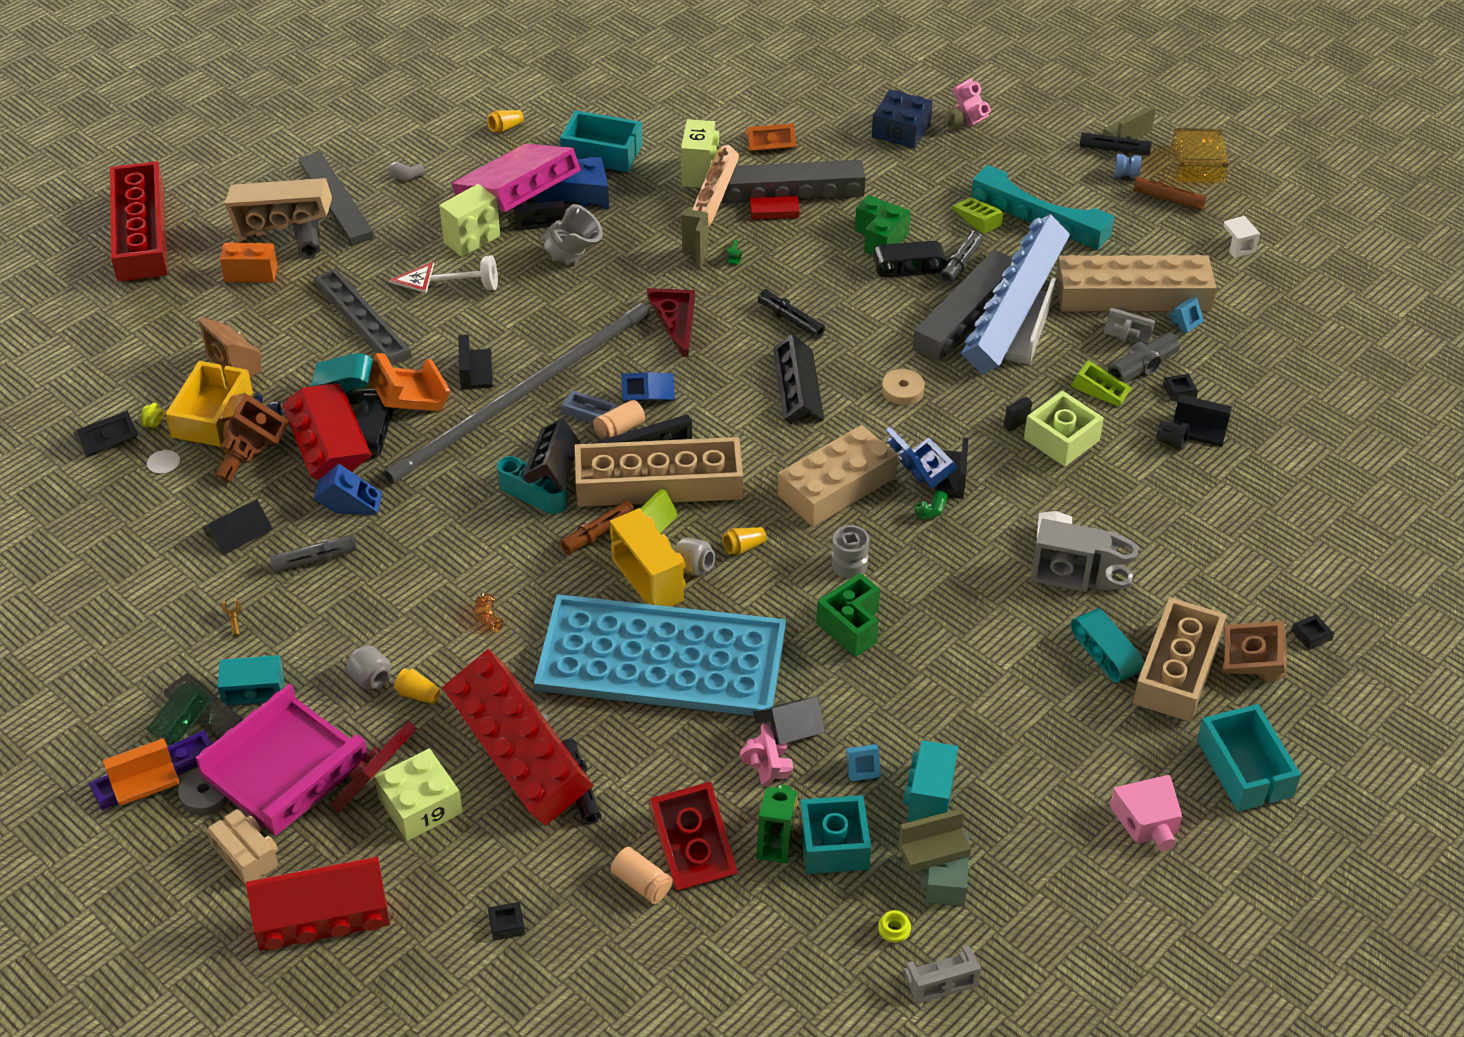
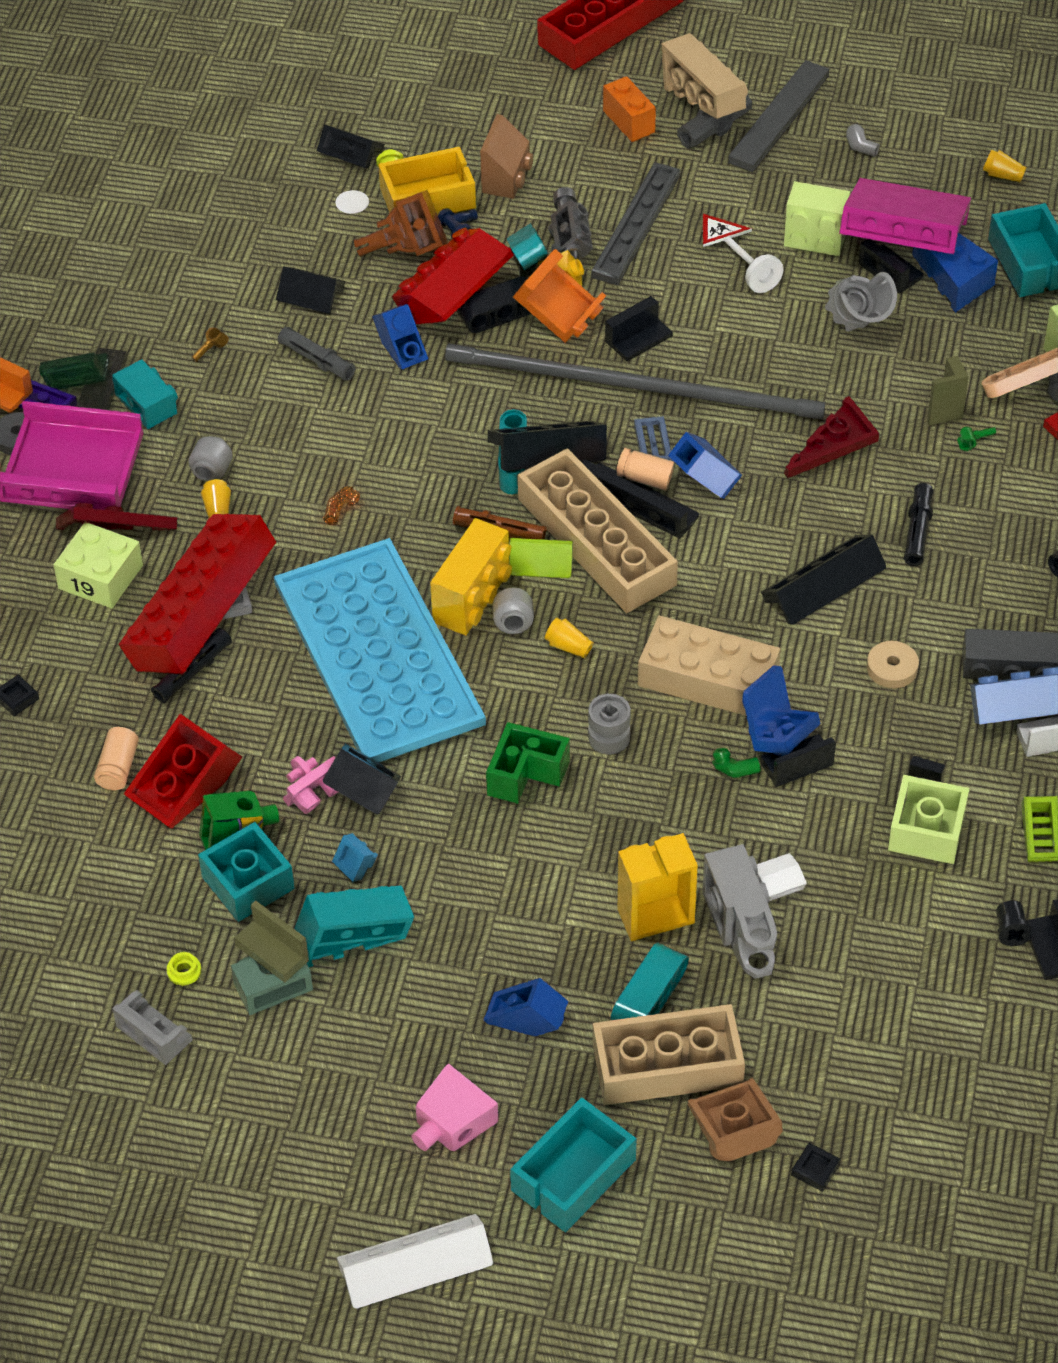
camera: 60 degrees right, 5 degrees up
(325, 342) = (570, 224): none -> flat silver brick
(1036, 586) = (657, 886): none -> yellow piece
(1080, 723) = (527, 1008): none -> blue slope
(1269, 897) = (415, 1261): none -> white panel

